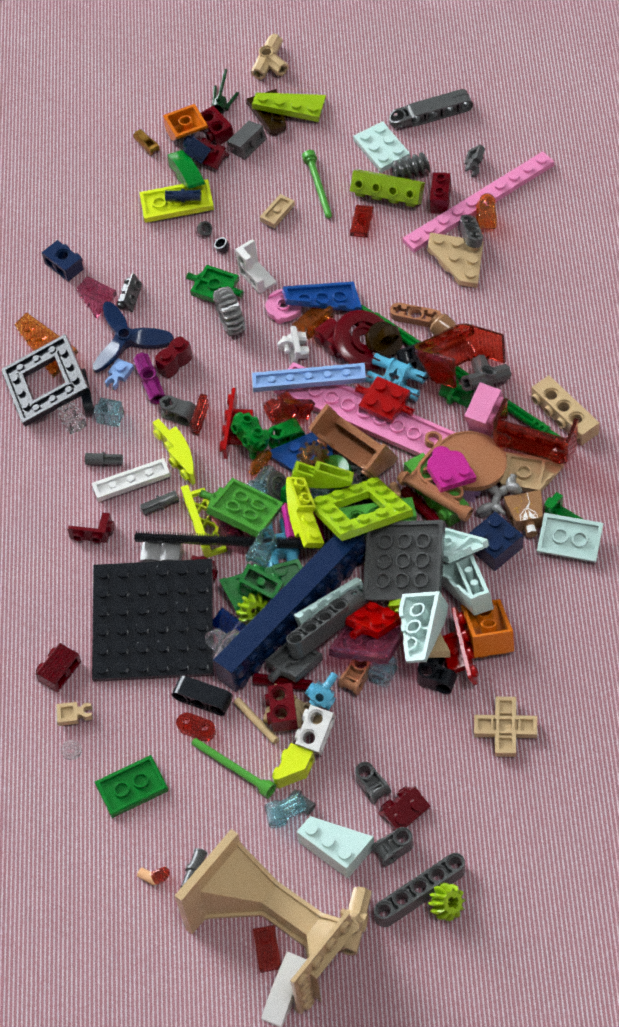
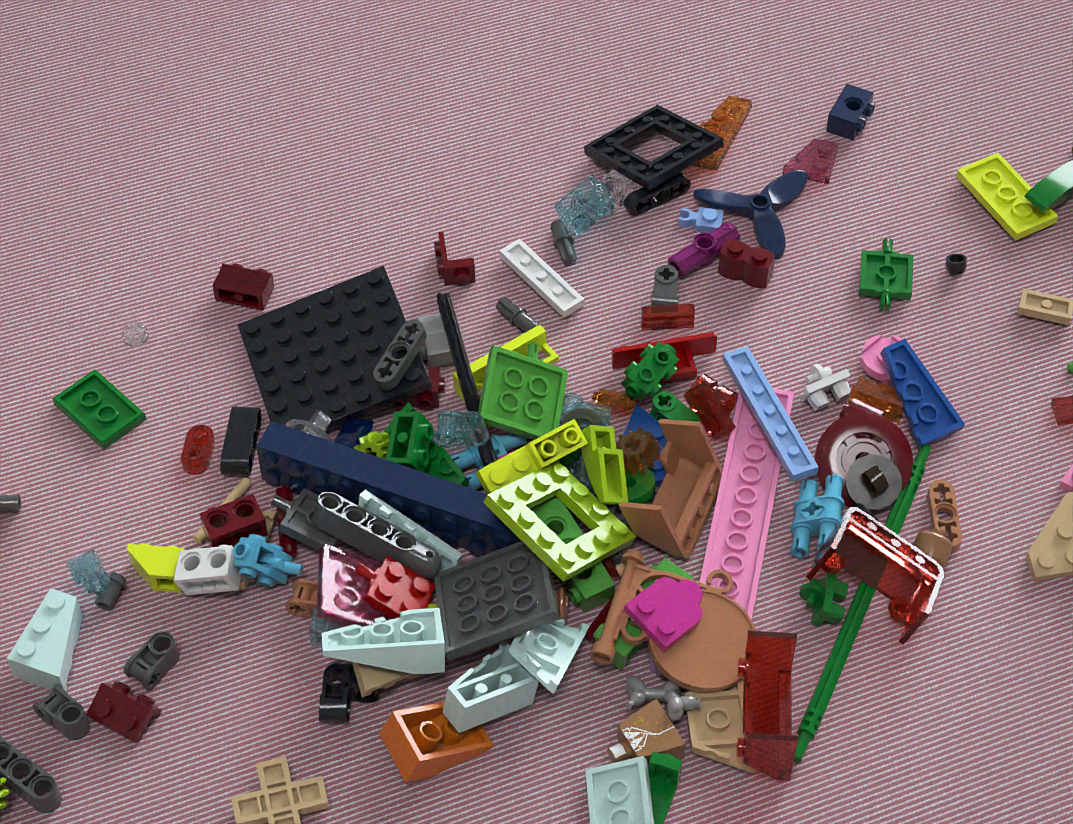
camera: 65 degrees right, 5 degrees down
(70, 713) = (184, 318): tan plate -> none
(80, 444) = (585, 205): none -> clear light blue brick
(108, 412) = (634, 225): clear light blue brick -> none
(131, 288) = (832, 193): dark grey hinge -> none
(175, 568) = (400, 366): none -> dark grey beam
(178, 450) = (601, 314): neon yellow slope -> none
(183, 195) = (1011, 195): dark blue pin -> none
(206, 226) = (969, 236): dark grey hinge -> none
(229, 311) = (839, 294): light grey gear -> none
(251, 269) = (932, 305): white panel -> none
(265, 787) = (119, 545): bright green piece -> none
(384, 399) = (769, 511): red plate -> none
(460, 652) = (373, 713): red bracket -> none
(483, 409) = (809, 623): bright pink brick -> none
(484, 373) = (862, 622): dark grey piece -> none
(502, 539) = (582, 710): dark blue brick -> none
(562, 401) = (831, 784): tan brick -> none

